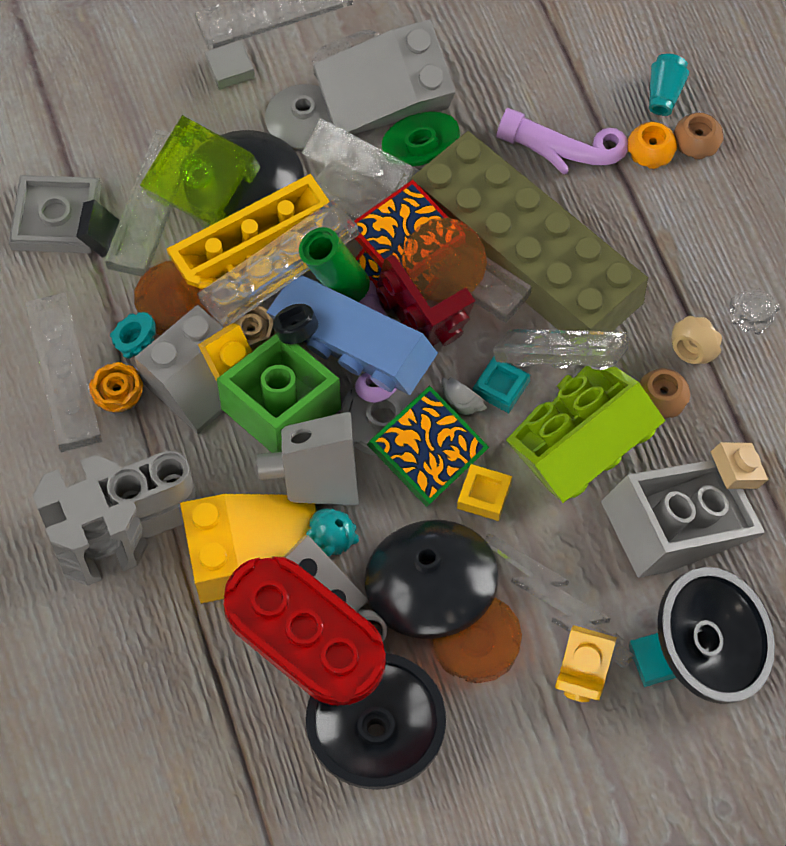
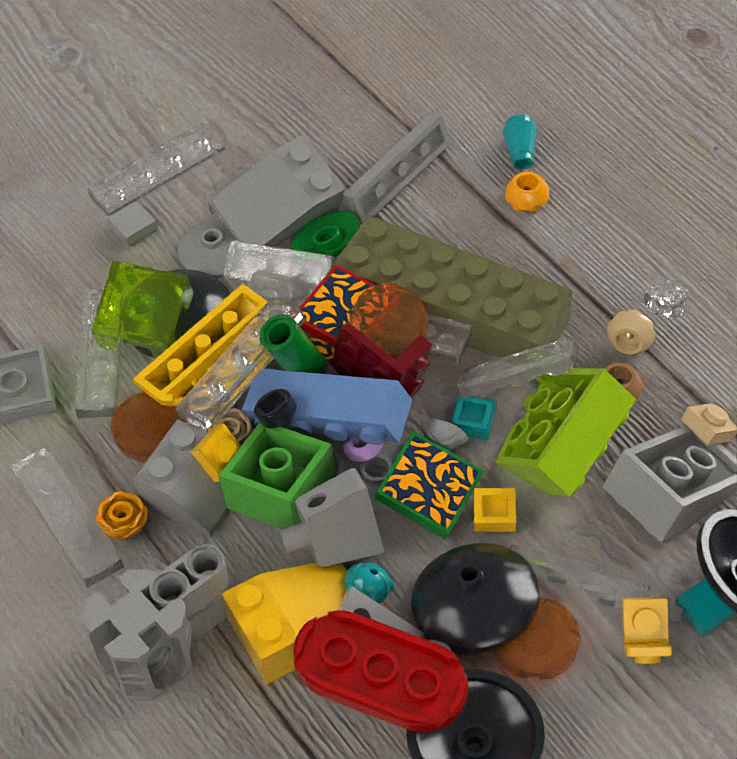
camera: 15 degrees left, 10 degrees down
(97, 227) = (58, 384): black tile -> none
(134, 334) = (123, 465): teal animal -> none
(523, 79) = (397, 167): none -> light grey plate
(553, 145) = (446, 213): lavender plant -> none
(698, 145) = (563, 174): medium nougat plate -> none

